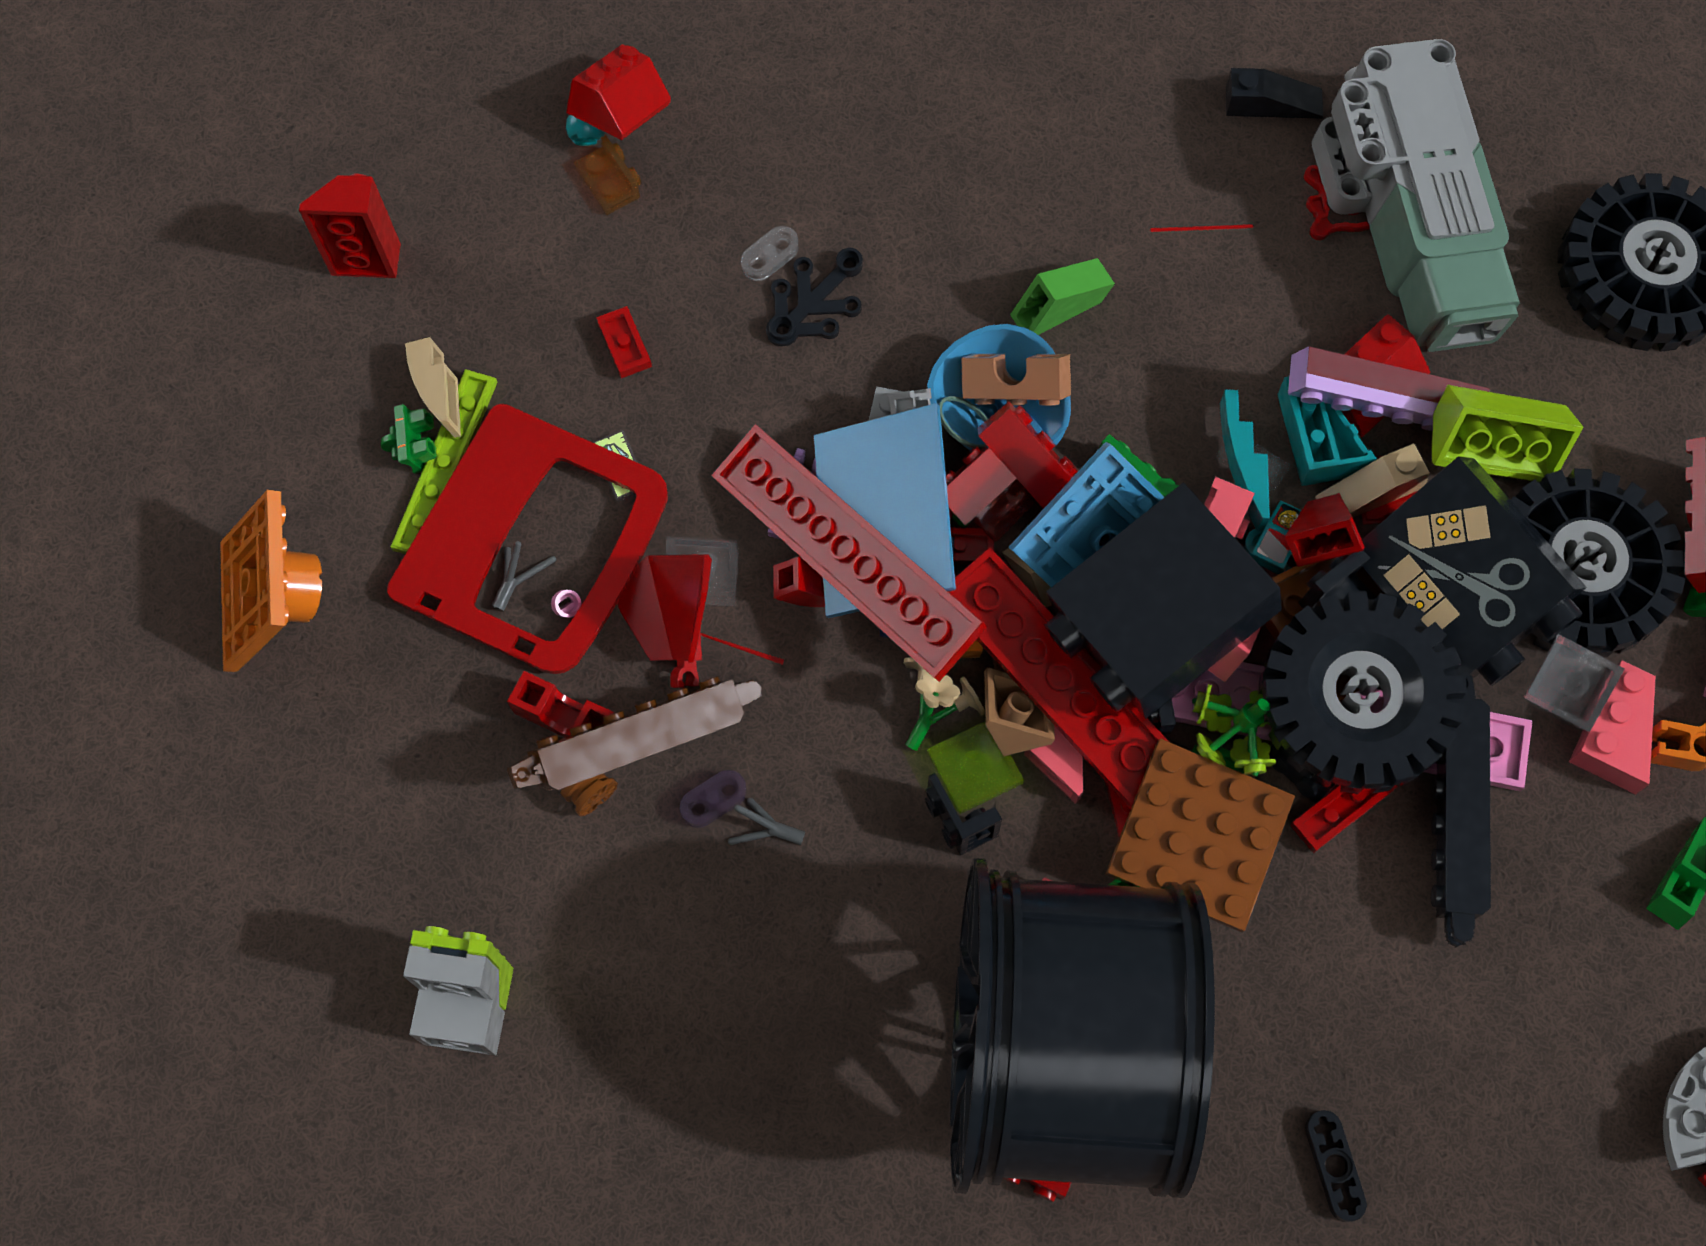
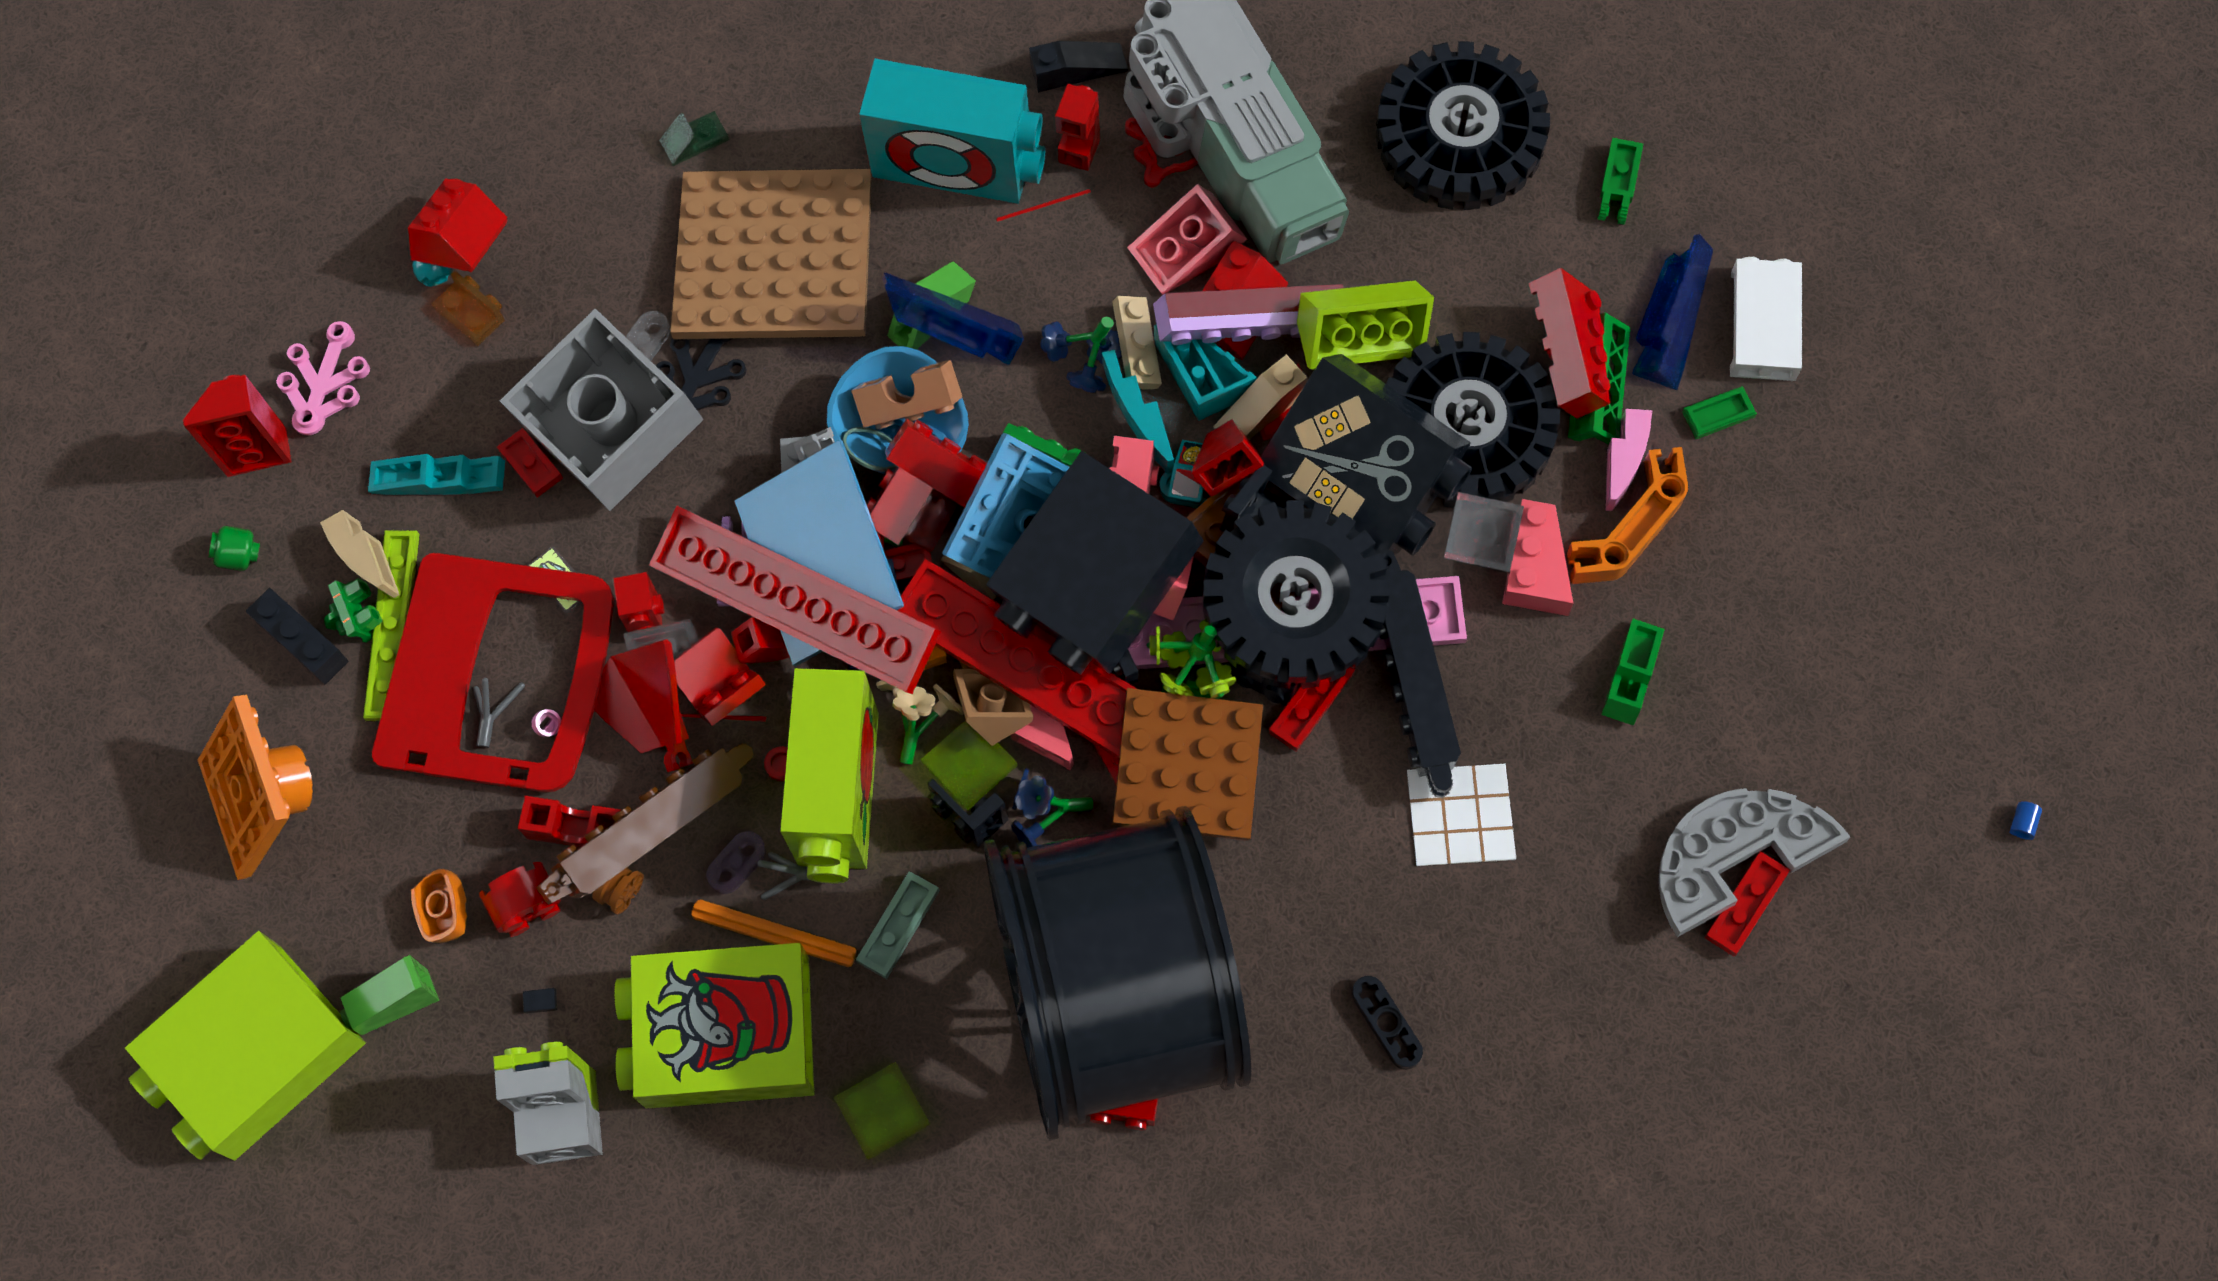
camera: 15 degrees left, 0 degrees up
(174, 842) = (241, 1049): none -> lime brick
(315, 345) = (233, 548): none -> green head
(332, 831) = (388, 996): none -> bright green slope
(350, 448) = (297, 636): none -> black arch
(409, 756) = (440, 906): none -> orange piece
(448, 209) = (323, 382): none -> bright pink plant
(479, 880) = (539, 1000): none -> black piece
(484, 772) = (517, 901): none -> red brick
(531, 330) = (436, 476): none -> teal slope
(647, 961) = (717, 1026): none -> lime brick
(690, 509) = (638, 602): none -> red brick
(710, 308) = (602, 409): none -> light grey brick
(731, 882) = (773, 932): none -> orange axle
(745, 606) = (714, 677): none -> red bracket
(786, 712) = (776, 763): none -> red tile
(788, 1098) = (881, 1111): none -> clear neon green plate
(833, 736) = (830, 772): none -> lime brick
(857, 911) = (897, 925): none -> sand green plate
(870, 70) = (690, 139): none -> clear green slope
(919, 204) = (772, 254): none -> medium nougat plate
(1035, 826) = (1036, 799): none -> dark blue plant
(1082, 316) = (953, 320): none -> clear blue wedge
(1133, 127) = (951, 131): none -> teal brick
(1221, 378) = (1100, 340): none -> dark blue plant
(1261, 387) = (1137, 340): none -> tan plate
(1262, 157) = (1080, 125): none -> red arch
(1337, 301) = (1186, 240): none -> coral slope
(1473, 981) = (1467, 823): none -> white piece

